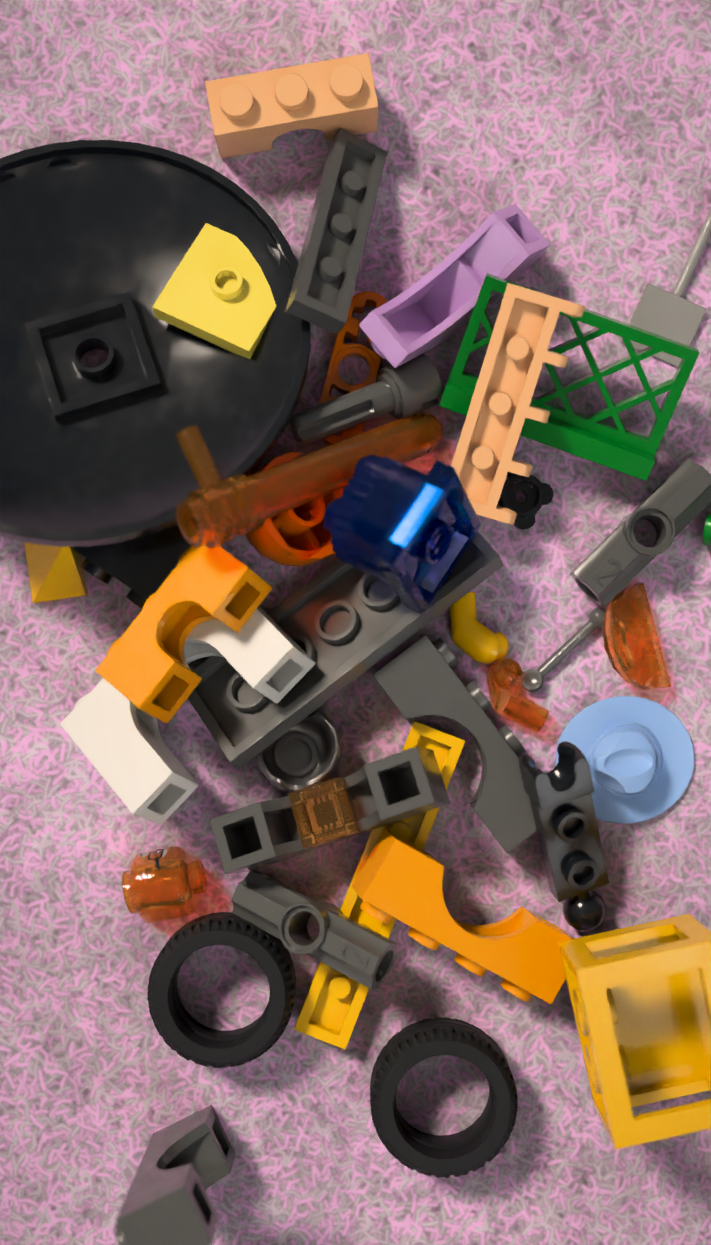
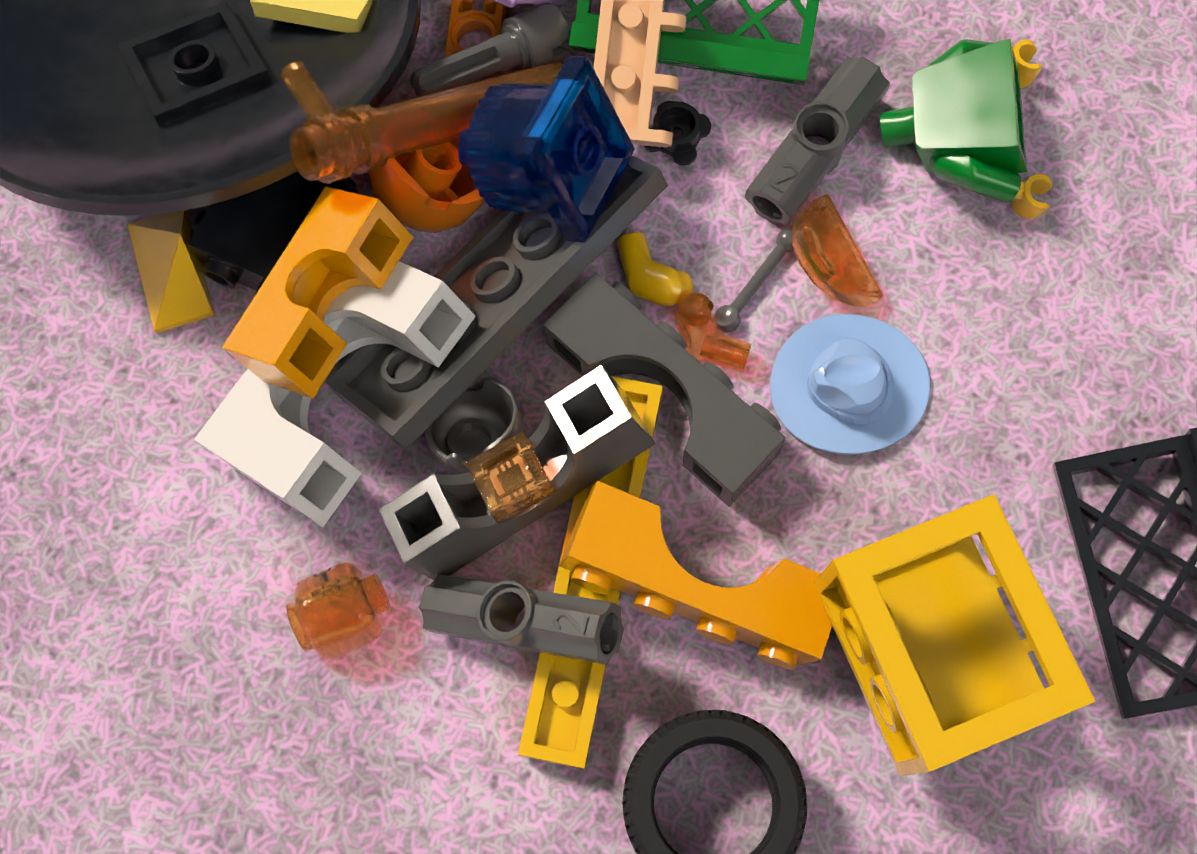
camera: 10 degrees left, 15 degrees down
(209, 1045) = (356, 697): black tyre -> none
(568, 834) = (797, 453): black plate -> none

